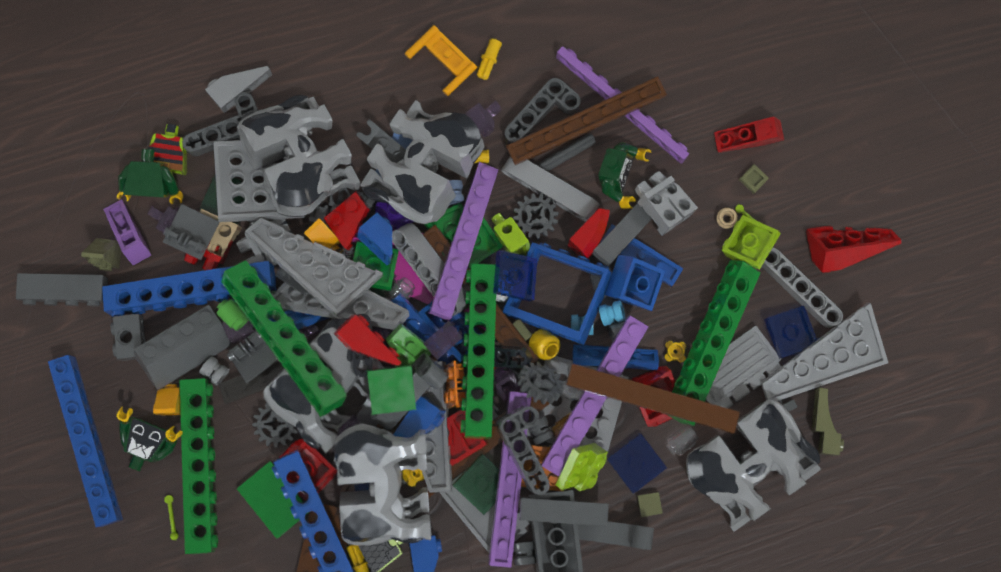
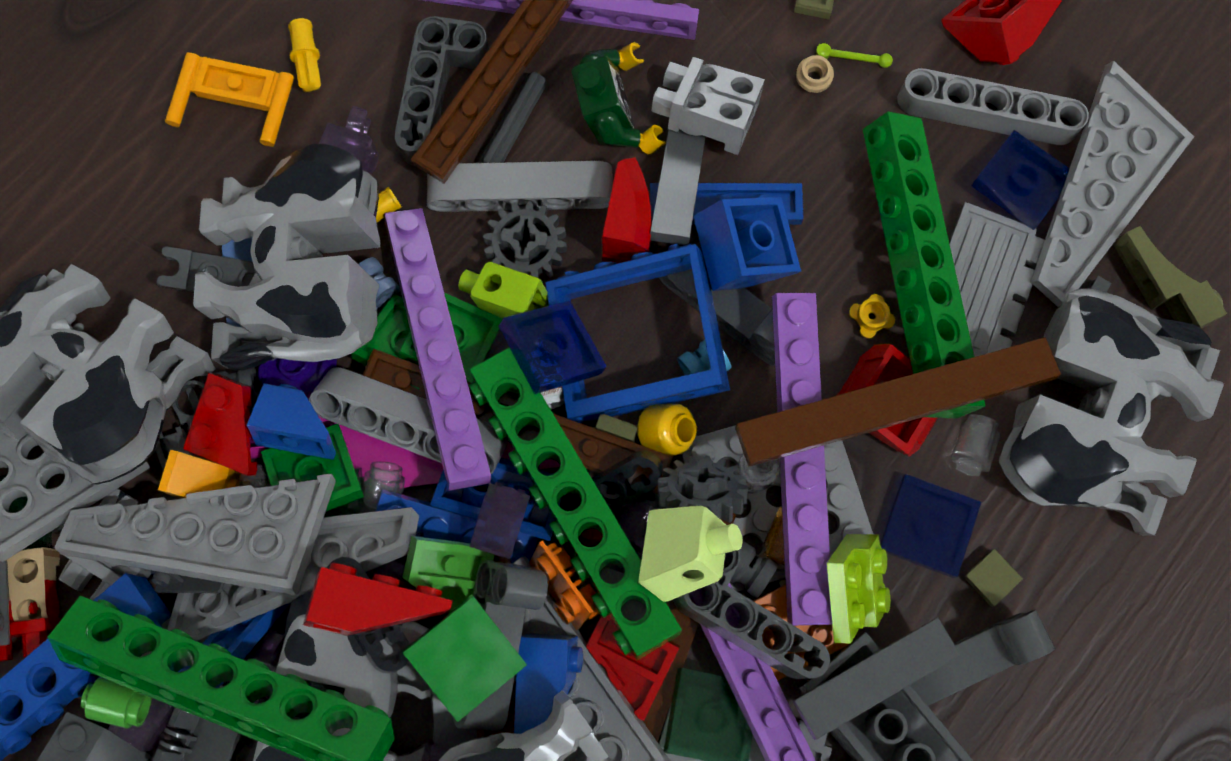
camera: 30 degrees left, 5 degrees down
(513, 403) = (685, 550): none -> yellowish green torso
(593, 355) = (760, 394): blue plate -> none
(611, 313) = (742, 311): medium azure wheel -> none
(750, 242) = (876, 81): lime plate -> none

